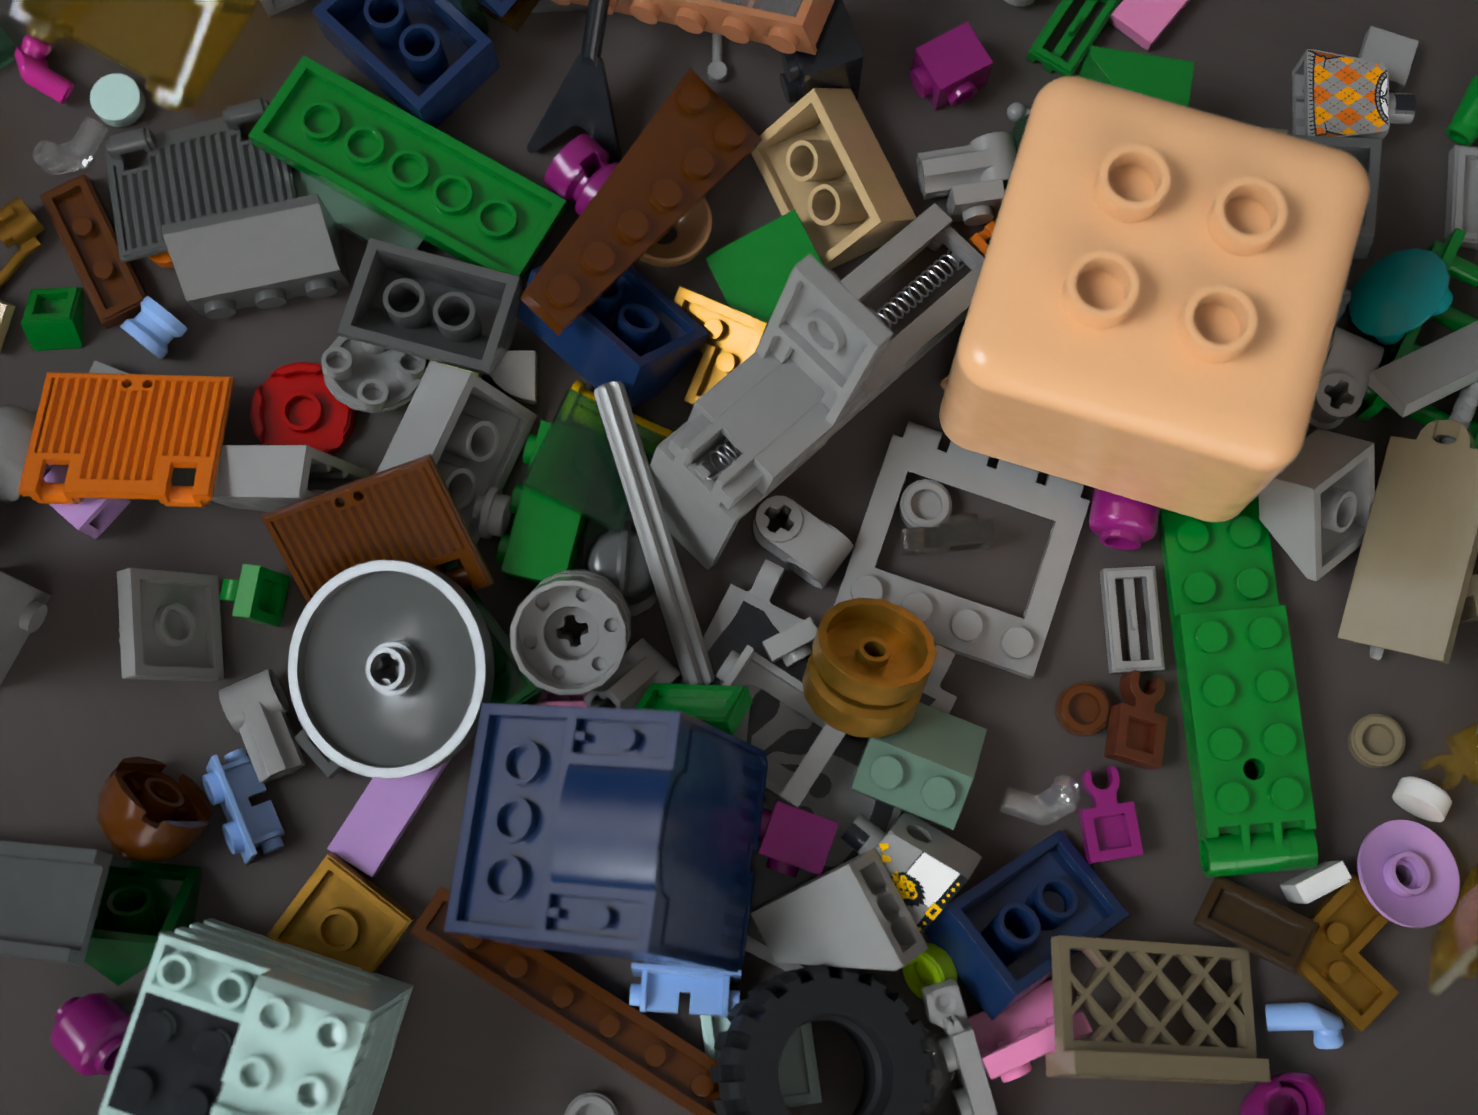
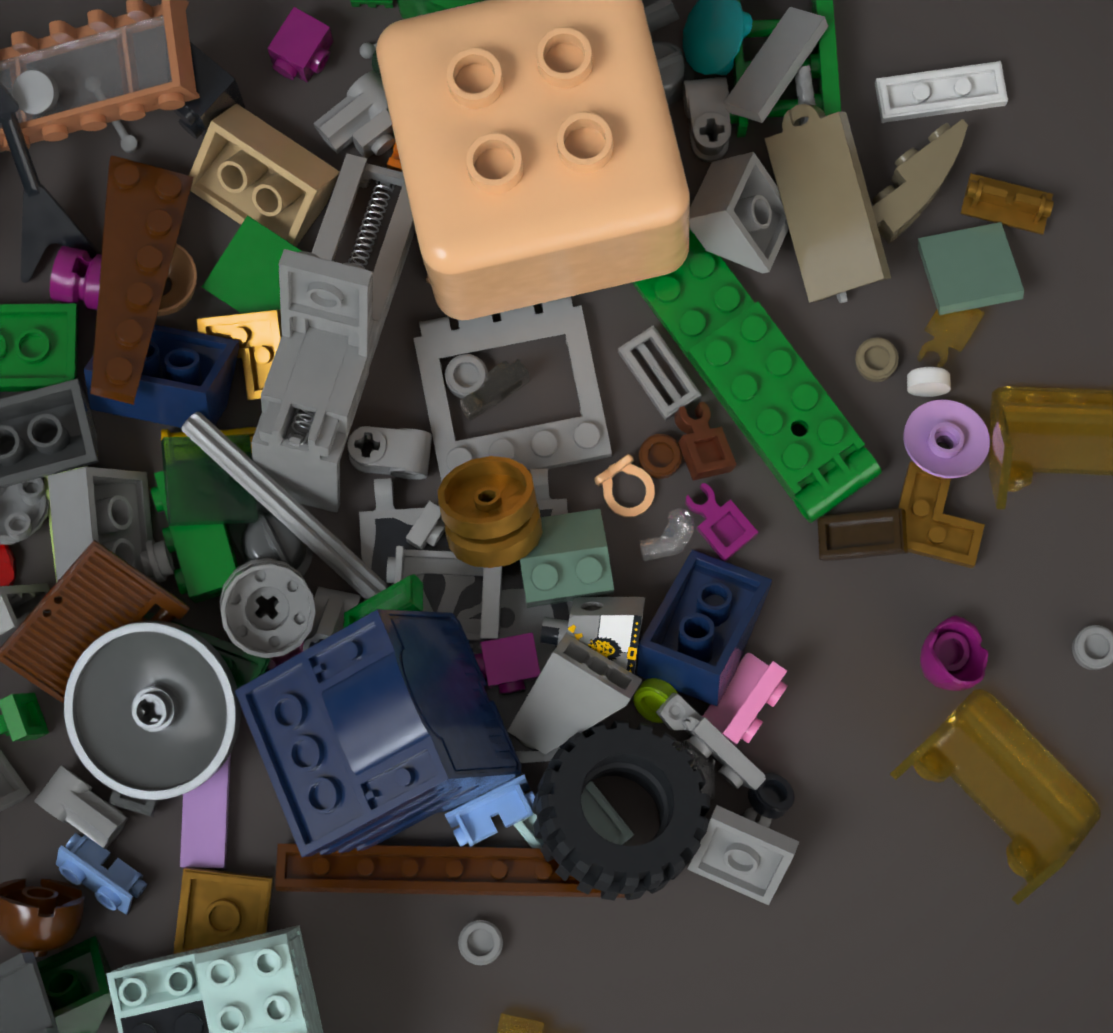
camera: 30 degrees left, 0 degrees up
(518, 375) = (115, 451): white tile -> none
(1039, 698) = (625, 465): none -> light nougat piece
(1122, 521) = (611, 307): magenta head -> none
(1142, 1059) = (836, 670): dark tan fence -> none
(1306, 1017) = (932, 578): light blue arm -> none
(1316, 882) = (887, 482): white tile -> none

